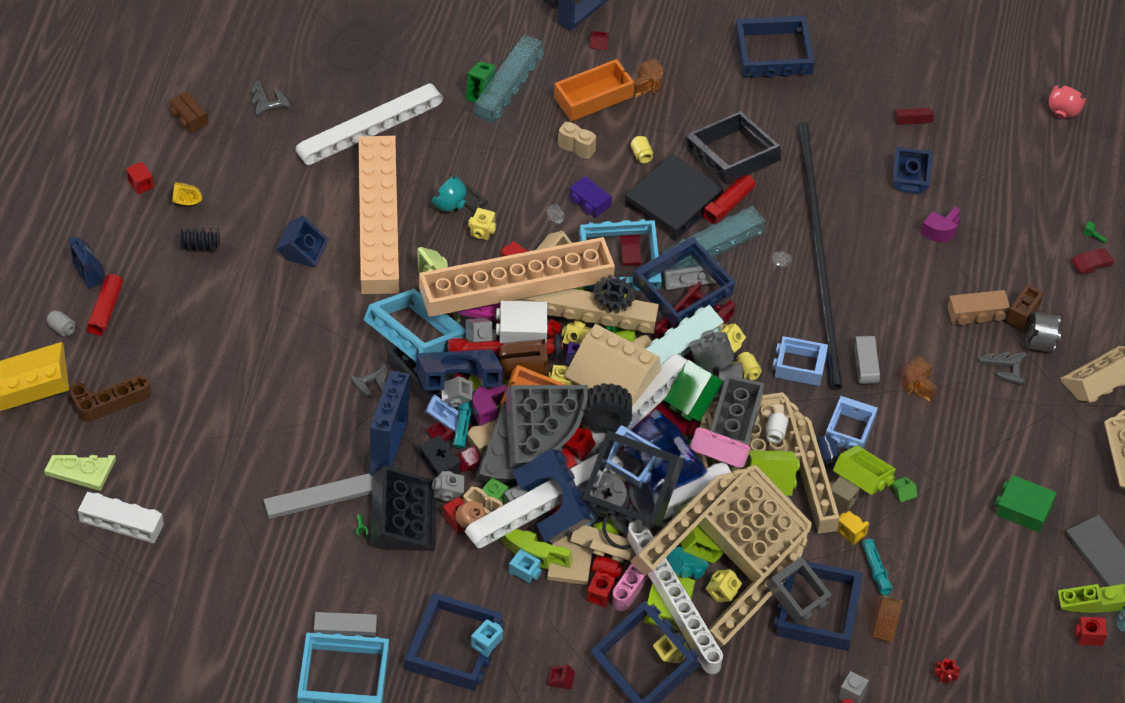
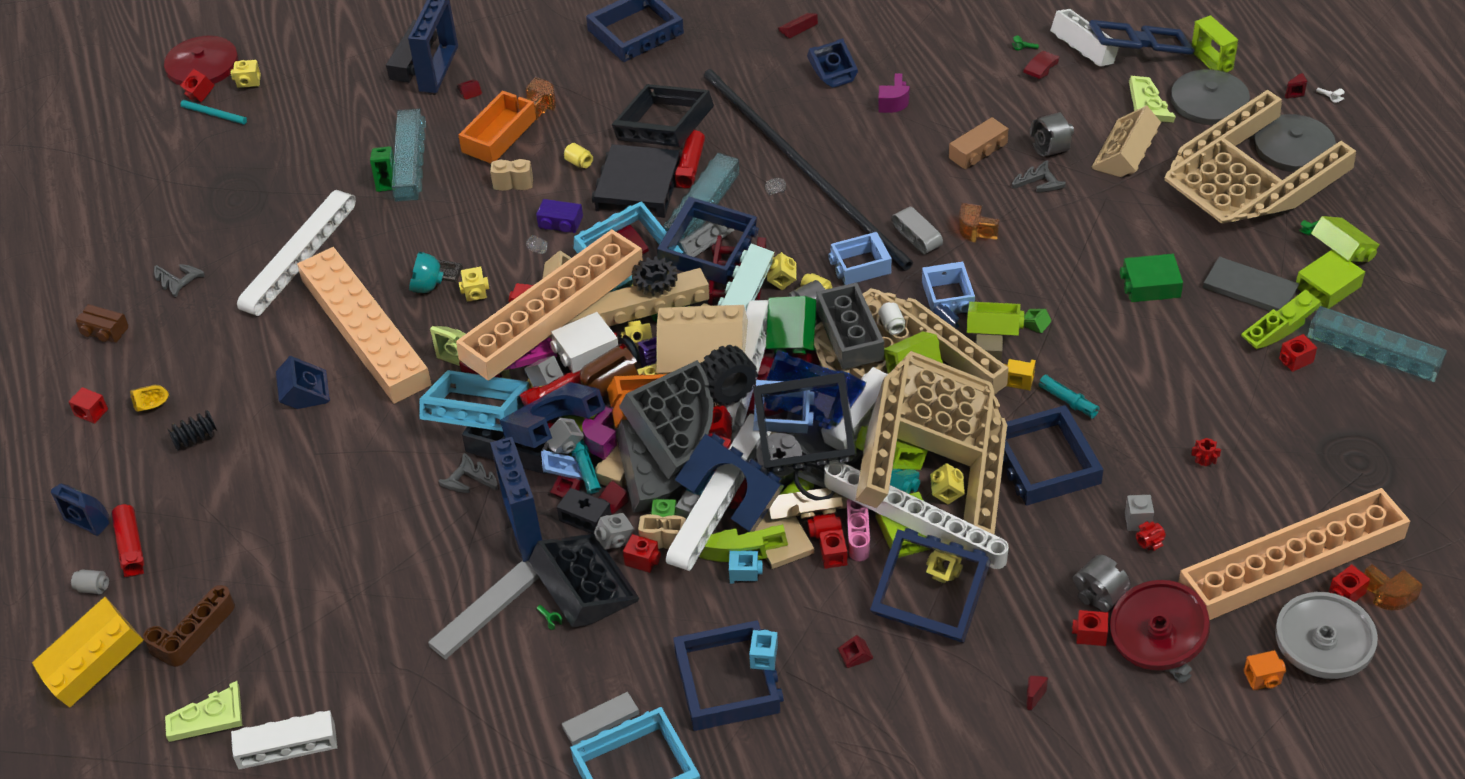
camera: 25 degrees left, 5 degrees down
(469, 513) = (658, 541): nougat head -> none
(712, 350) = (782, 279): flat silver brick -> none
(720, 447) = (861, 356): bright pink beam -> none
(787, 601) = (1019, 460): dark grey window -> none
(888, 618) = (1118, 430): clear orange brick -> none
(1025, 304) = (1019, 123): reddish brown brick -> none

